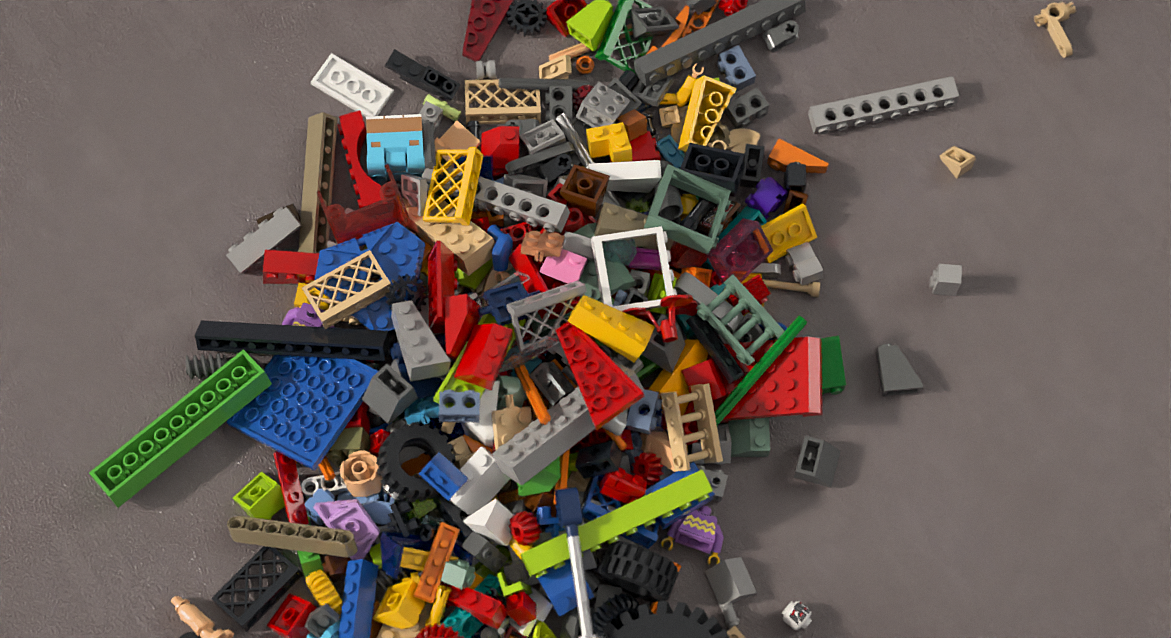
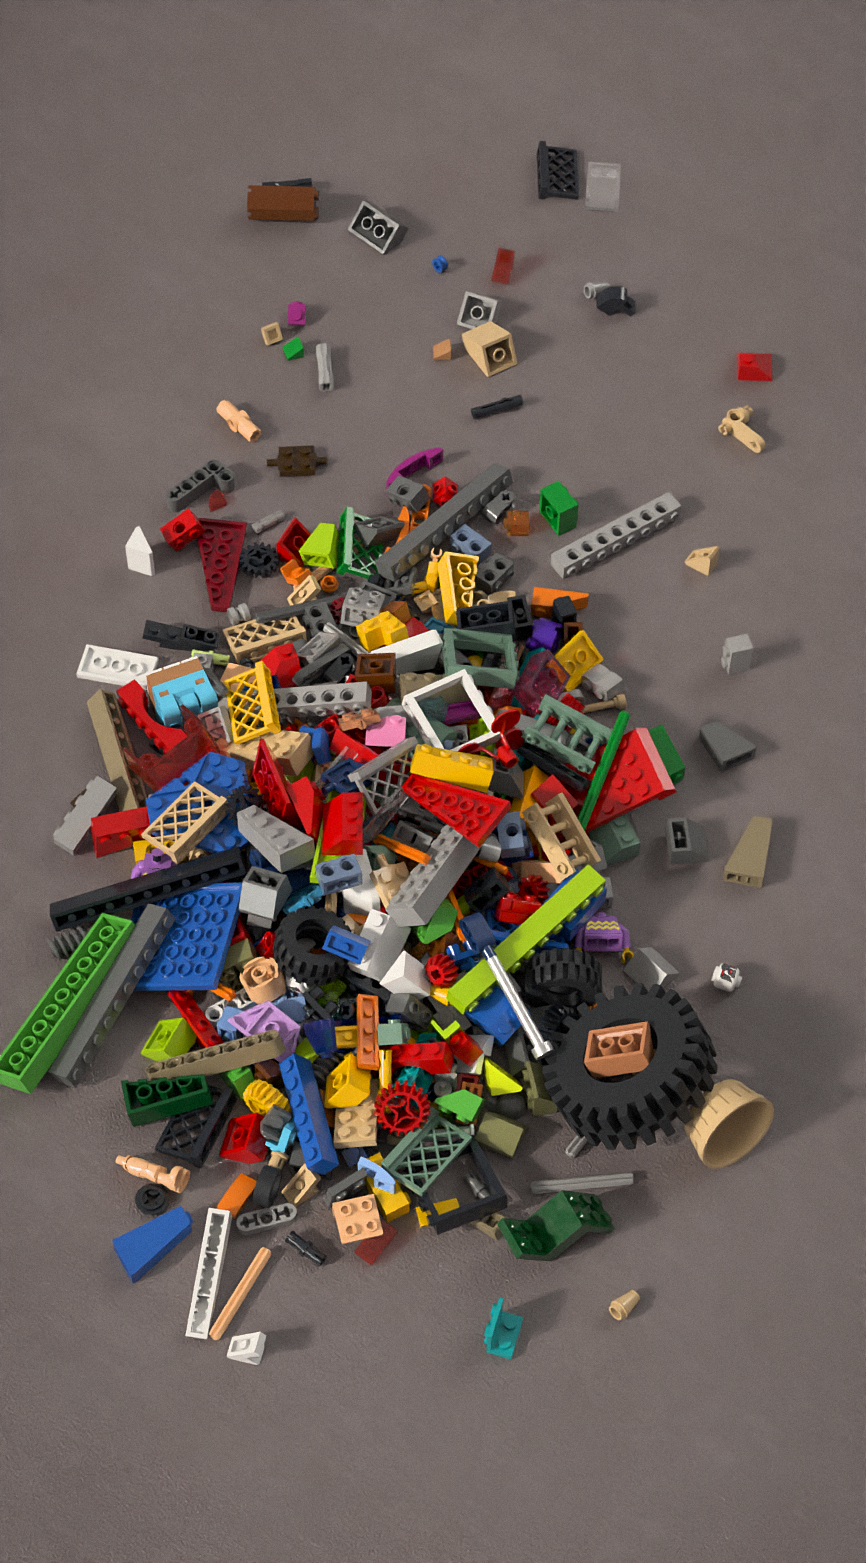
camera: 15 degrees left, 15 degrees down
(223, 435) = (111, 995): none -> dark grey brick
(234, 555) = (164, 1097): none -> dark green wedge
(555, 43) = (294, 573): none -> orange bracket
(791, 58) = (517, 523): none -> clear orange brick
(837, 58) = (558, 508): none -> green brick
(872, 496) = (749, 857): none -> dark tan slope

